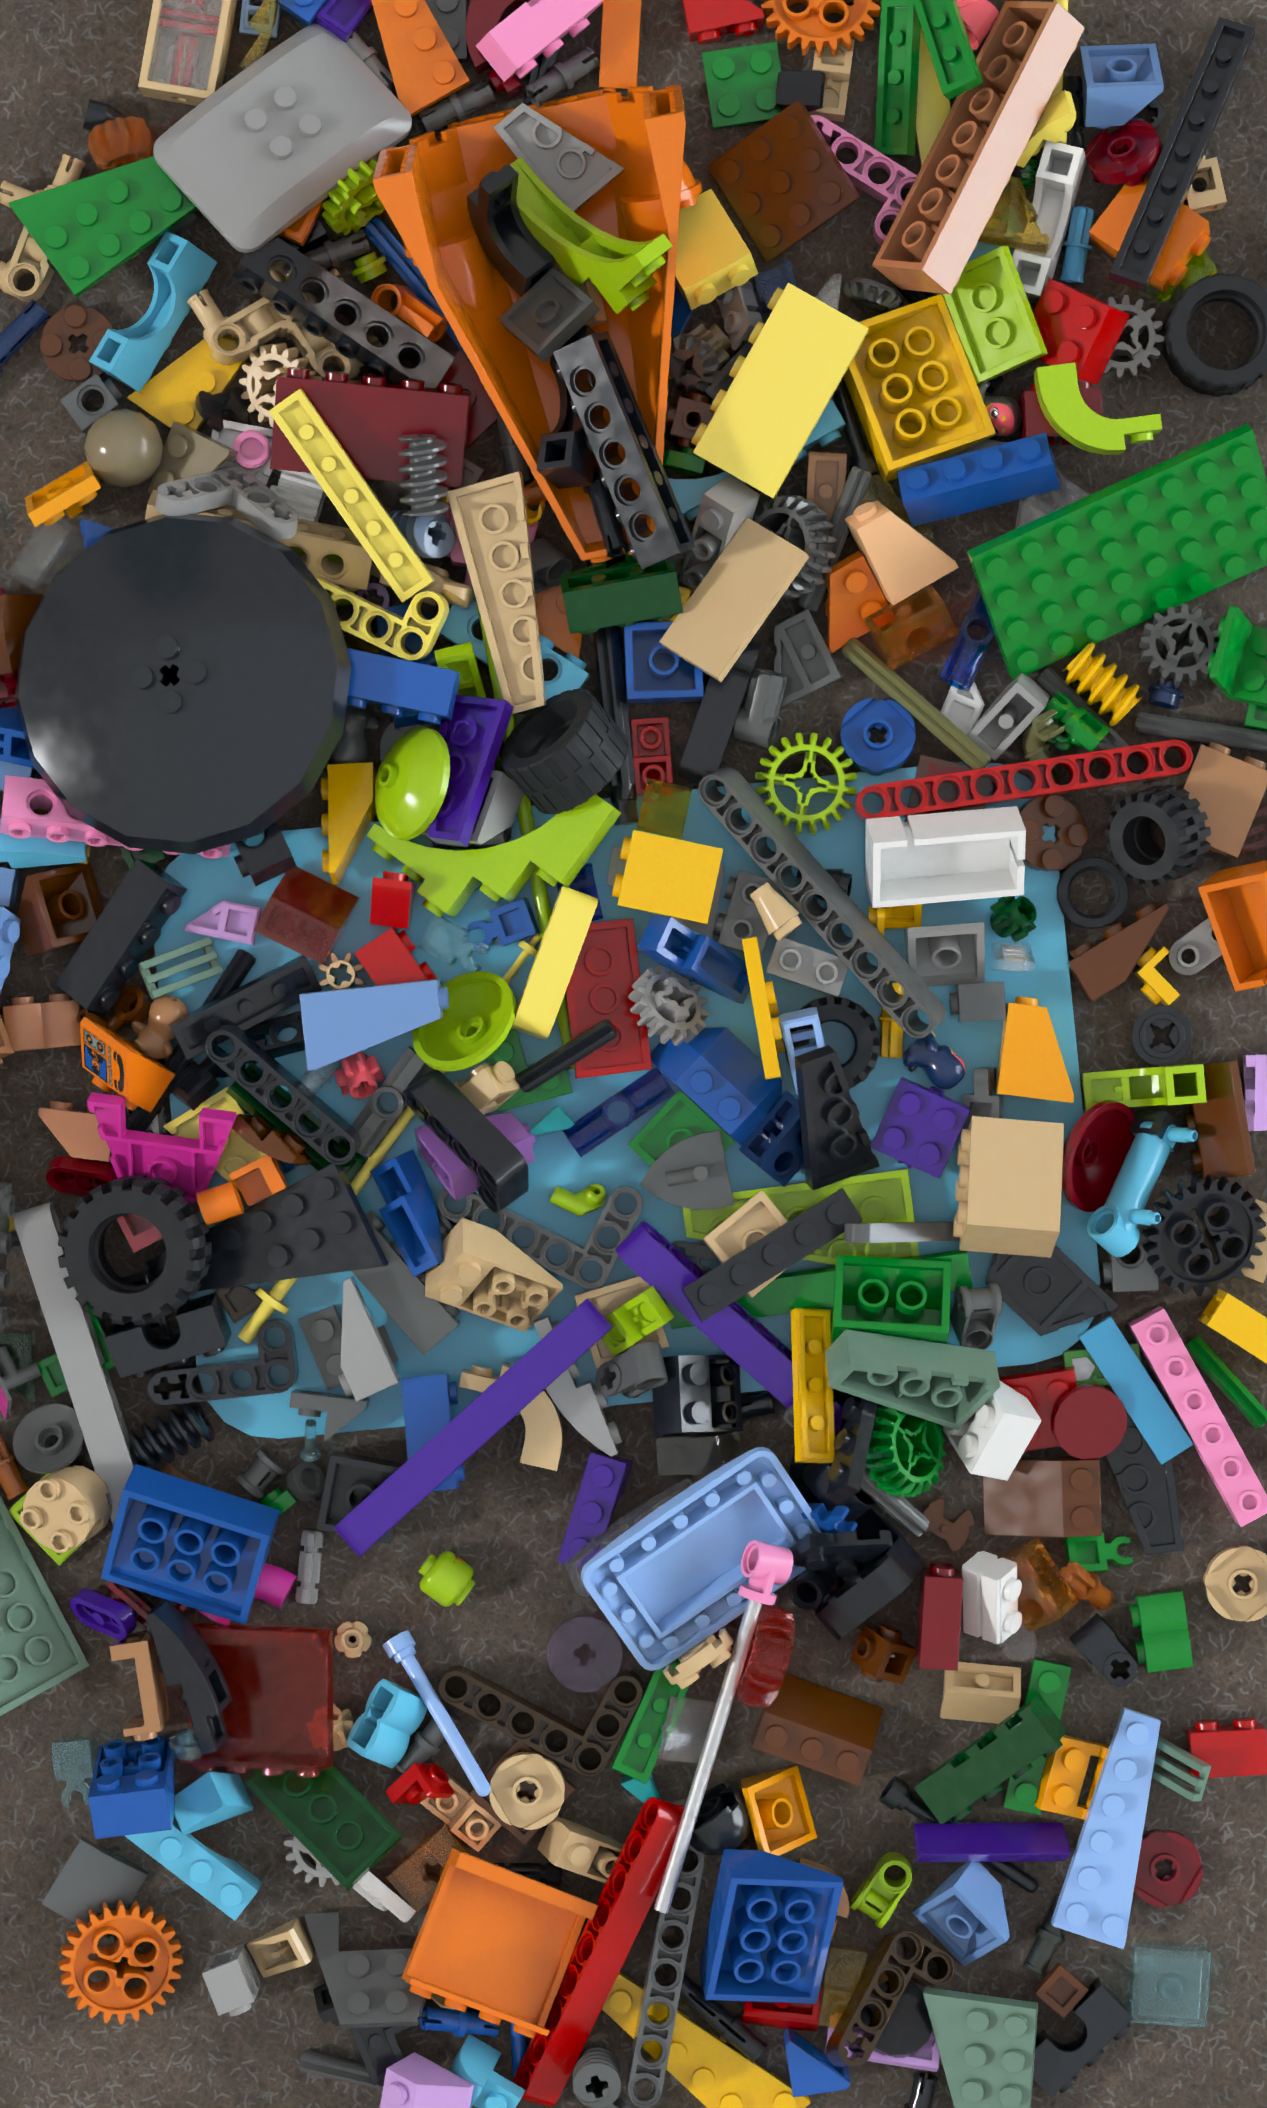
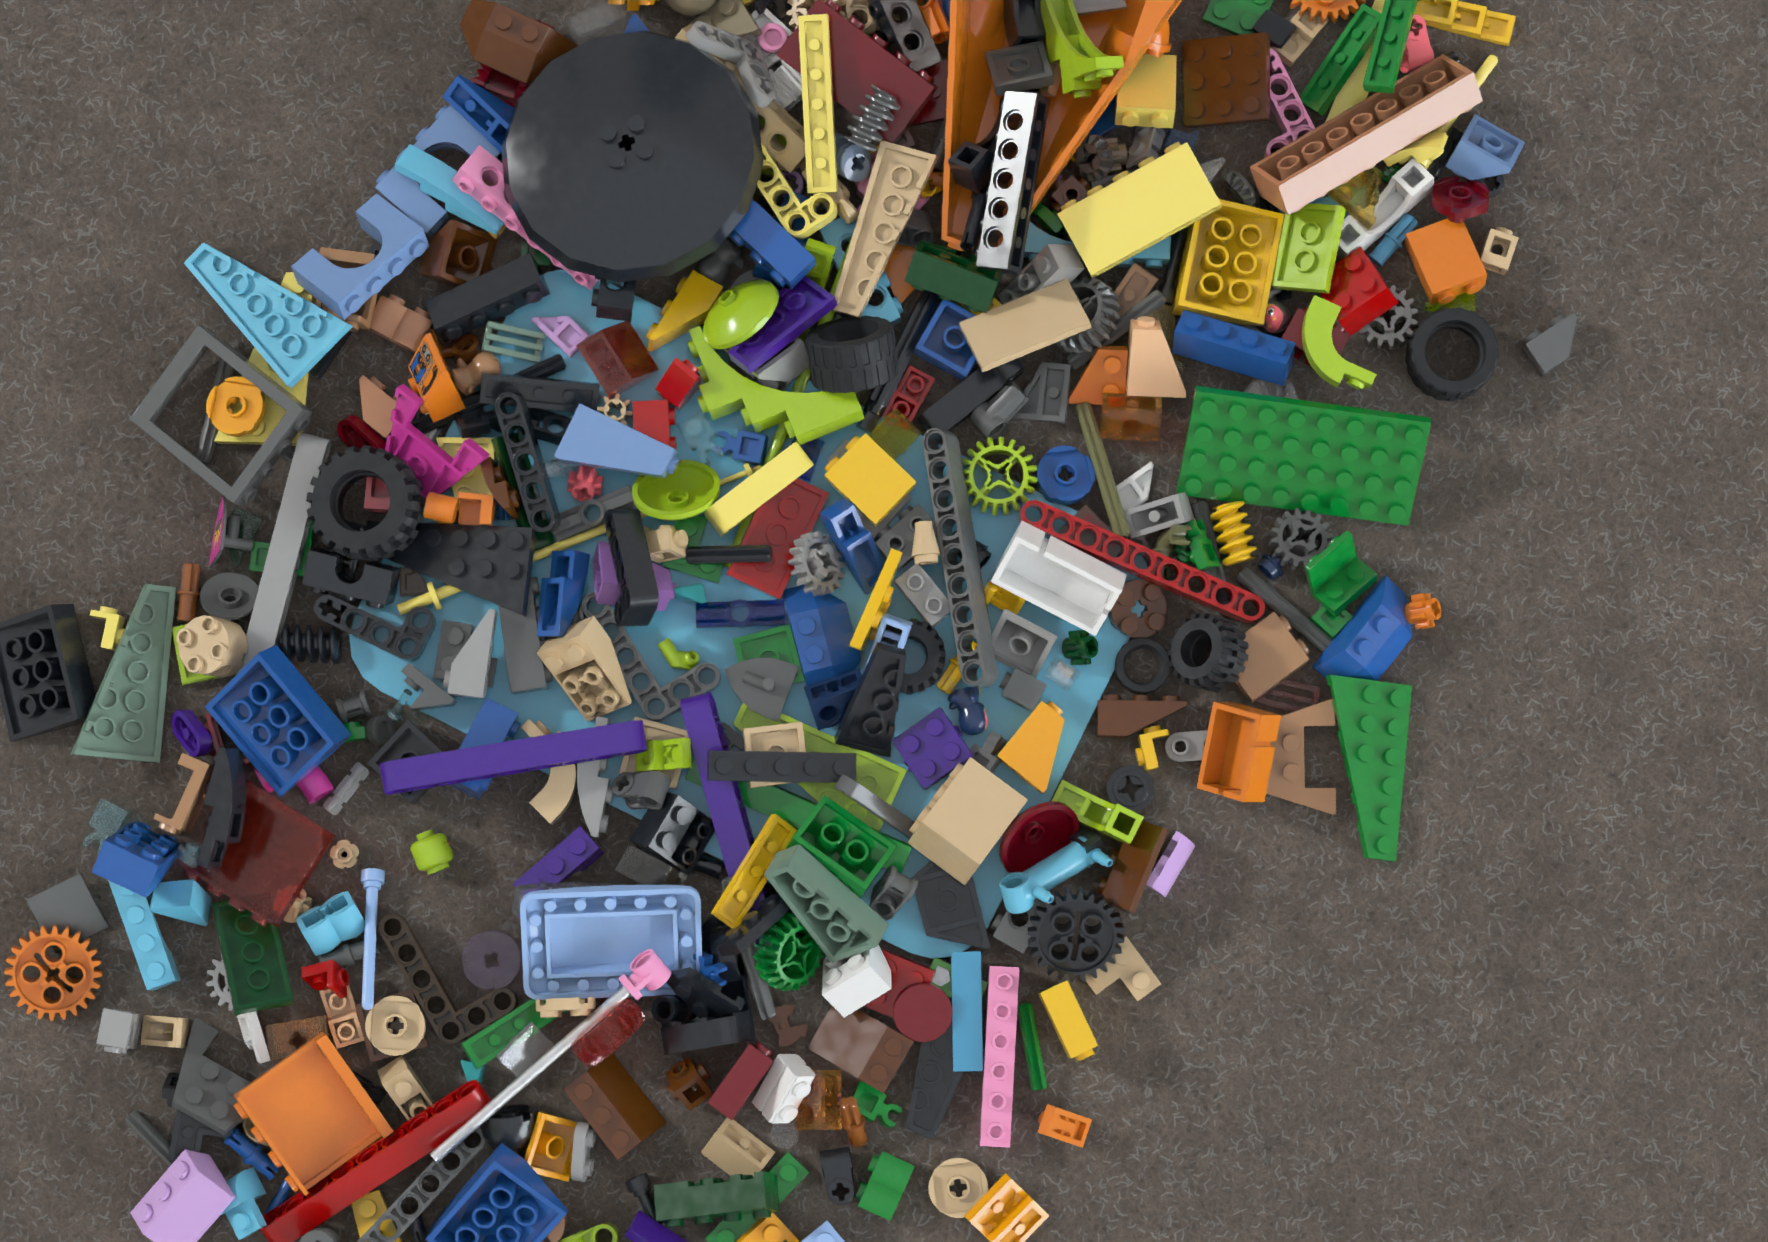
camera: 30 degrees right, 5 degrees down
(808, 1786) = (581, 1163): none -> light grey plate
(967, 653) = (1157, 458): clear blue piece -> none
(1182, 154) = (1496, 221): black plate -> none

